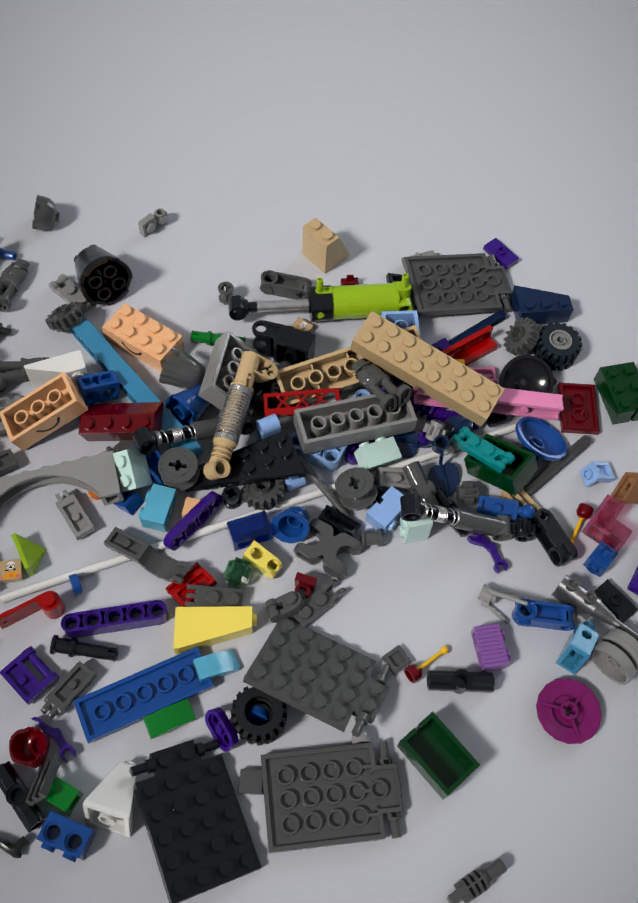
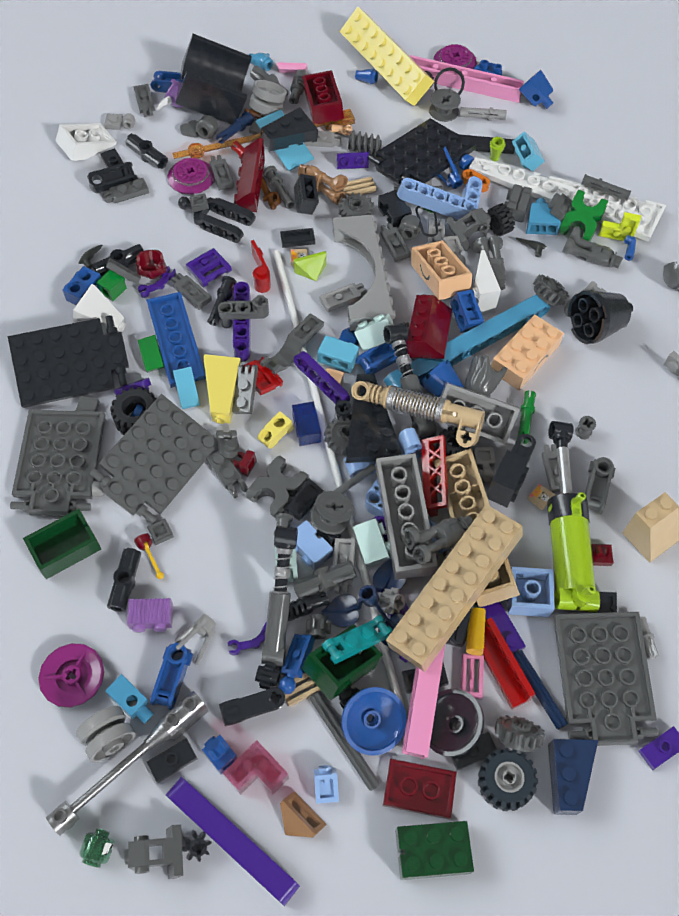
camera: 100 degrees right, 0 degrees up
(75, 584) = (277, 295): blue tile -> none
(109, 599) = (254, 309): none -> dark grey beam
(179, 458) = (371, 355): dark grey piece -> none
(238, 573) = (265, 409): clear green head -> none
(279, 317) = (551, 467): none -> light grey hinge
(291, 524) = (309, 458): blue piece -> none
(584, 512) = (279, 752): dark red hinge -> none

